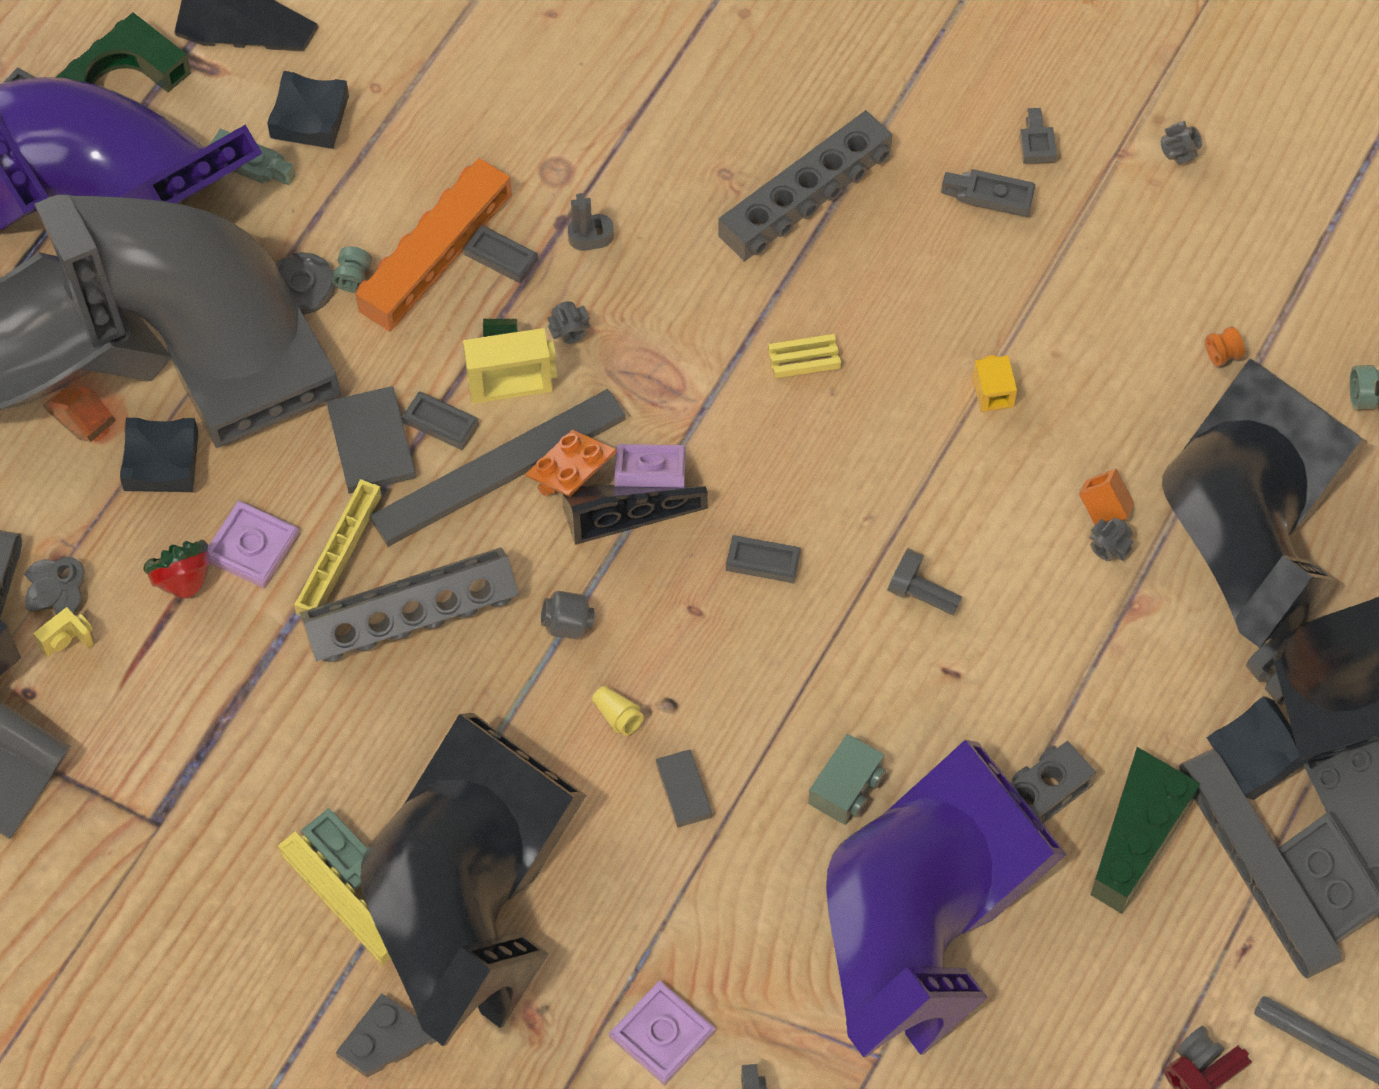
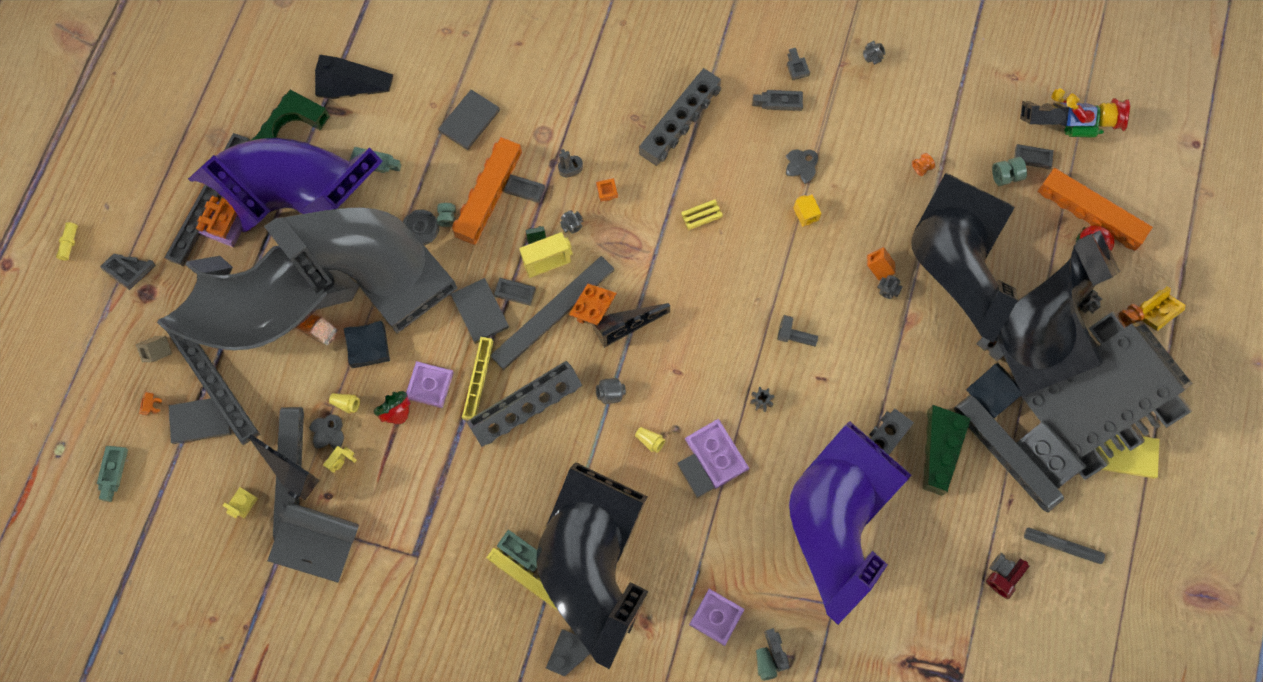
camera: 10 degrees left, 10 degrees up
(98, 542) = (345, 402): none -> light yellow cone
(308, 110) = (400, 126): black brick -> none
(432, 122) = (469, 119): none -> dark grey tile
(644, 281) = (606, 190): none -> orange tile
(650, 465) = (635, 296): lavender tile -> none
(731, 759) = (717, 453): none -> lavender tile
(763, 559) = (707, 335): dark grey tile -> none
(831, 673) = (765, 395): none -> dark grey gear
(846, 780) = (781, 453): sand green brick -> none
(1002, 308) = (800, 166): none -> dark grey plate

